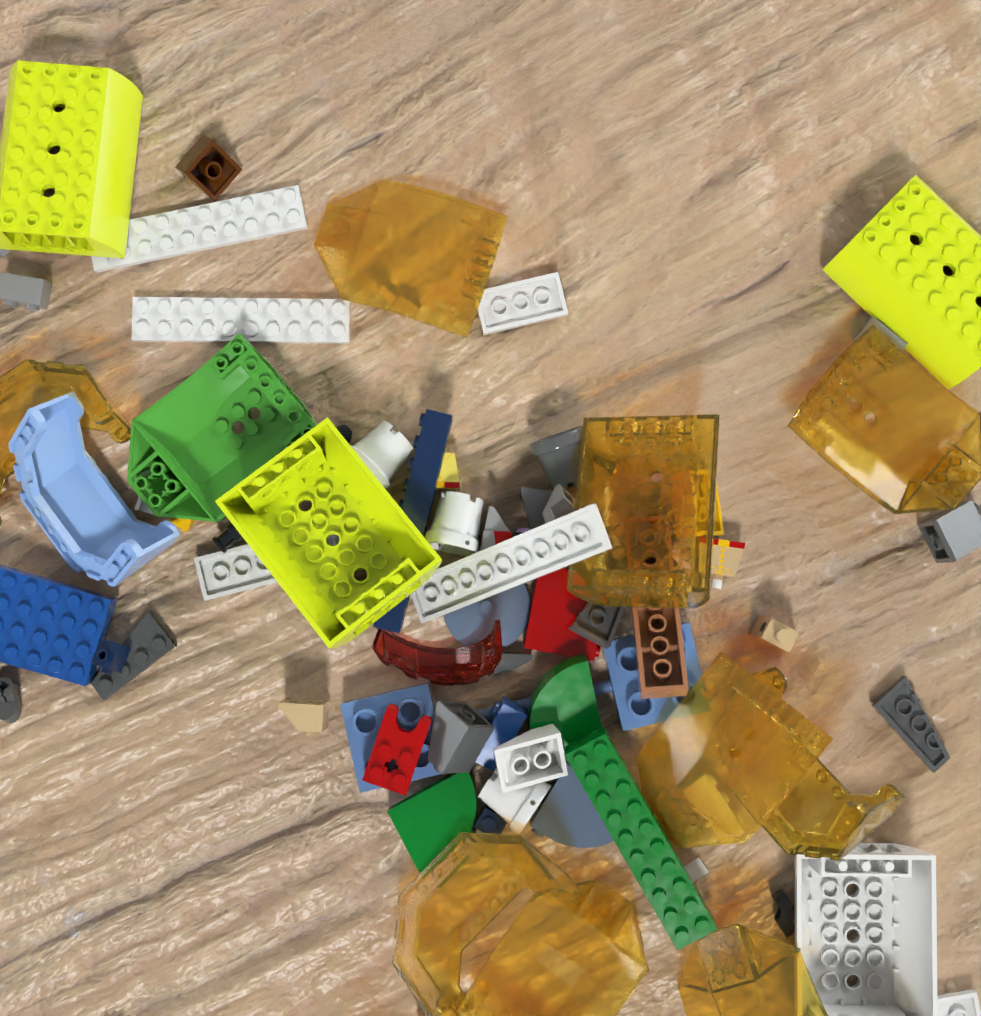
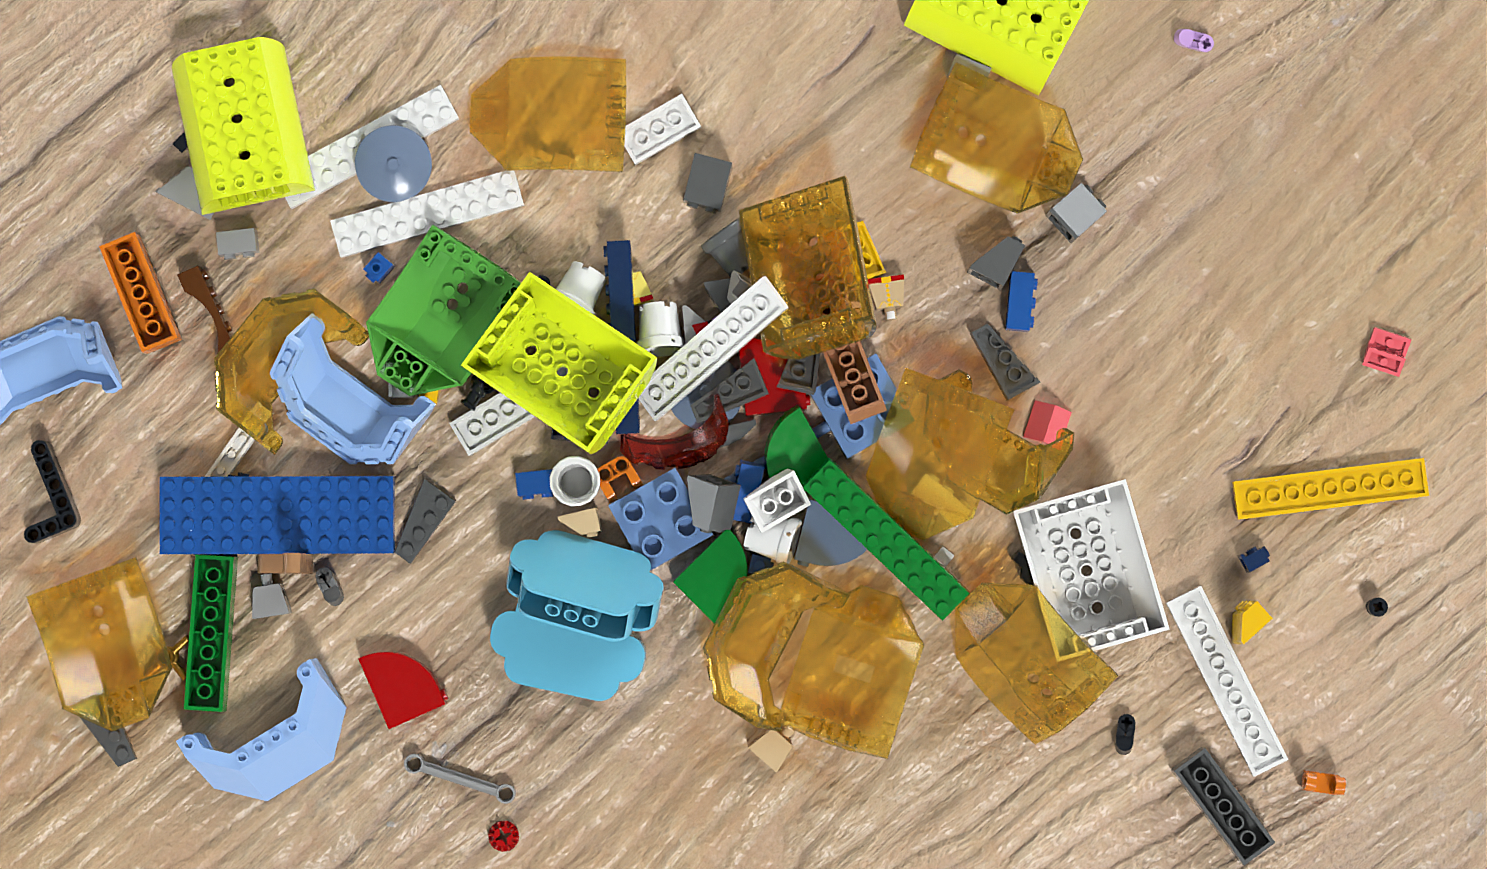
camera: 10 degrees left, 0 degrees up
(51, 836) = (401, 686): none -> red brick
(85, 958) = (459, 778): none -> light grey piece
(110, 656) = (406, 523): dark blue brick -> none
(168, 364) = (378, 268): none -> blue brick
(208, 167) = (360, 92): reddish brown slope -> none
(219, 254) = (393, 163): none -> sand blue dish
(248, 849) = (564, 659): none -> medium azure brick
(269, 653) = (533, 484): none -> blue brick
(283, 793) = (584, 585): none -> medium azure brick
(309, 668) = (574, 481): none -> white piece
(345, 678) = (614, 474): none -> orange piece
(399, 745) = (666, 520): red brick -> none
(518, 619) = (734, 392): none -> dark grey wing
(557, 377) = (707, 183): none -> dark grey slope
(774, 633) = (951, 342): tan torso -> none
(827, 683) = (1003, 364): none -> dark grey wing
(853, 755) = (1045, 422): none -> coral slope
(855, 562) = (998, 262): none -> dark grey slope
(864, 611) = (1020, 301): none -> blue brick
(904, 714) = (1086, 383): dark grey wing -> none

